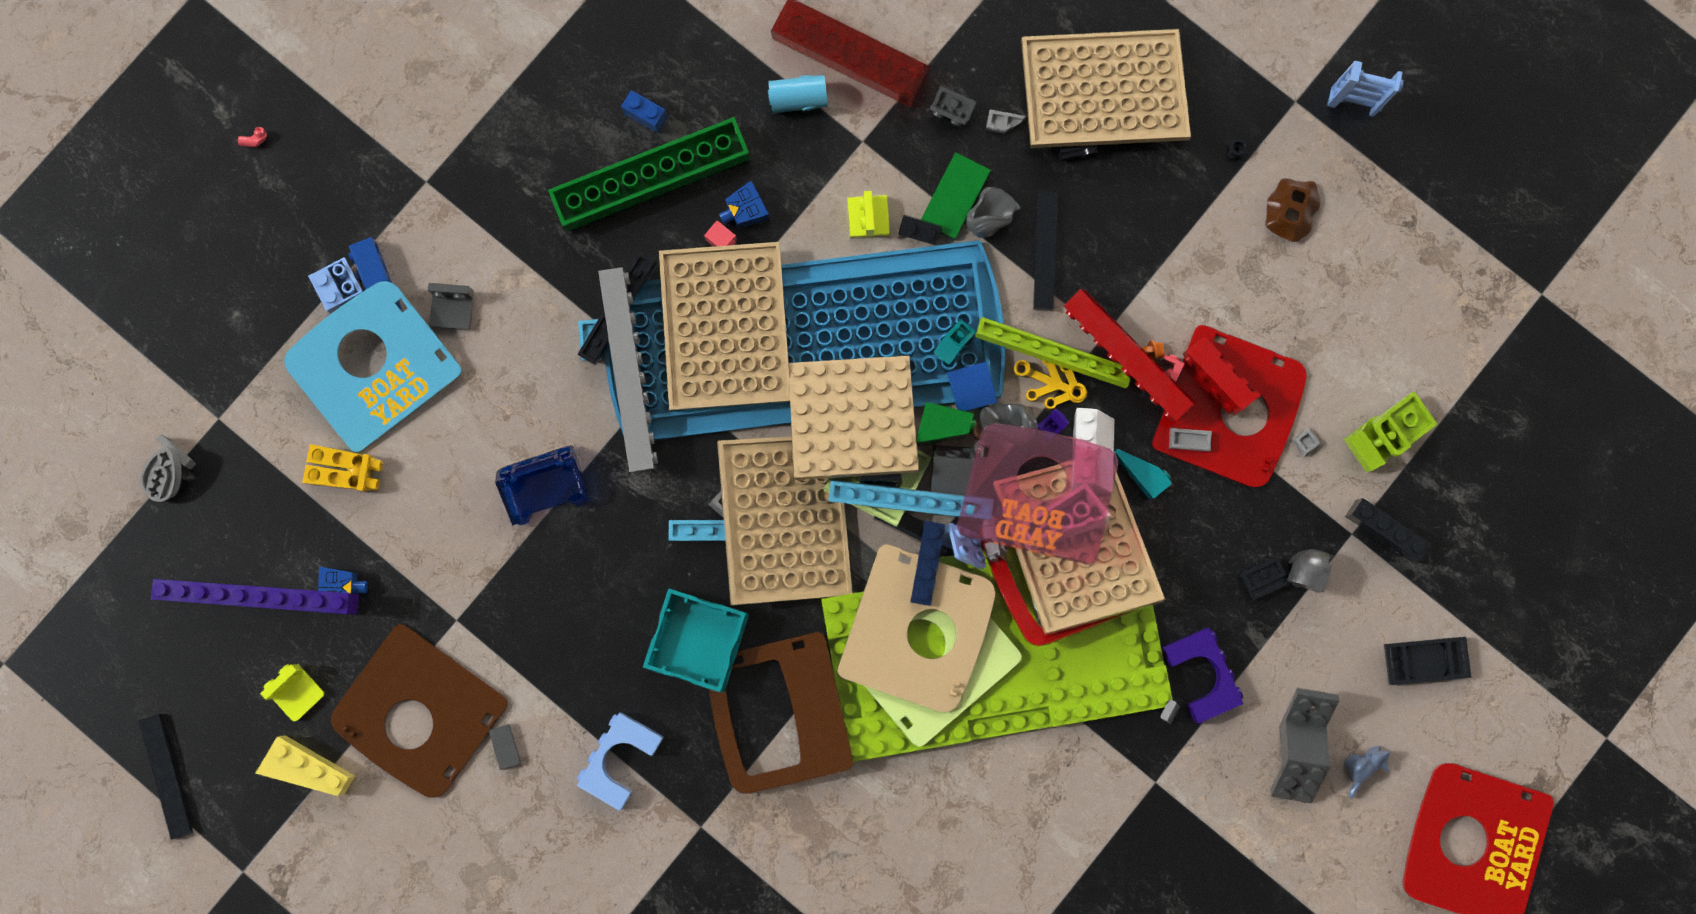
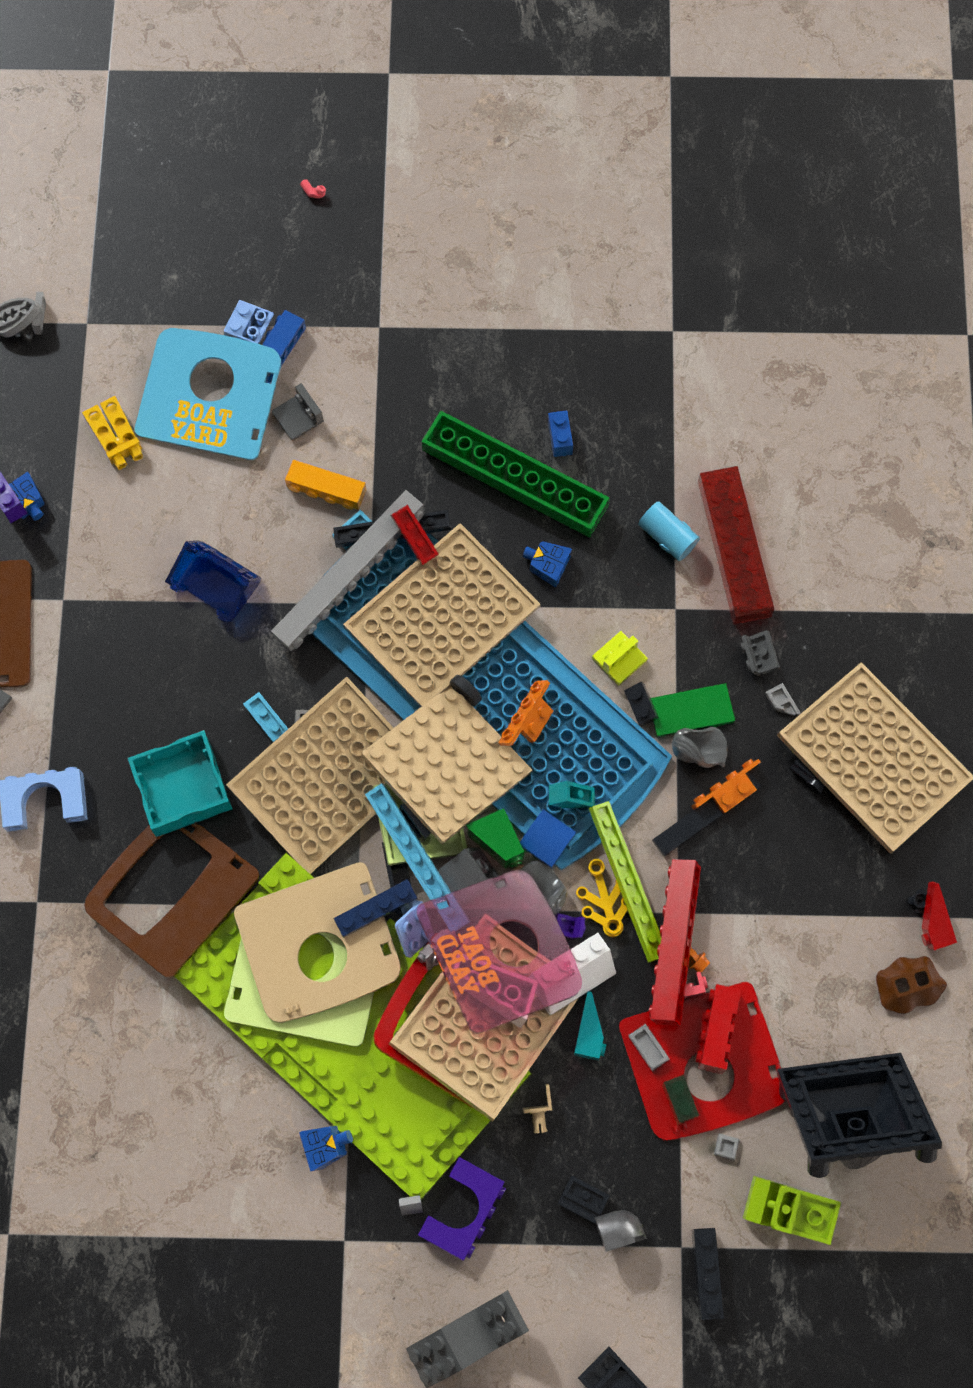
camera: 55 degrees right, 10 degrees down
(532, 332) = (325, 485): none -> light orange brick
(642, 294) = (414, 534): none -> red tile
(720, 236) = (510, 560): coral brick -> none
(809, 354) = (465, 688): none -> black tyre
(865, 323) = (530, 716): none -> orange bracket
(1044, 217) = (731, 791): none -> orange bracket
(1075, 743) = (324, 1146): none -> blue torso
(1174, 560) = (538, 1113): none -> tan bracket
(1249, 447) = (680, 1100): none -> clear green brick
(1265, 150) = (936, 920): none -> red slope
(1367, 323) = (858, 1112): none -> black piece

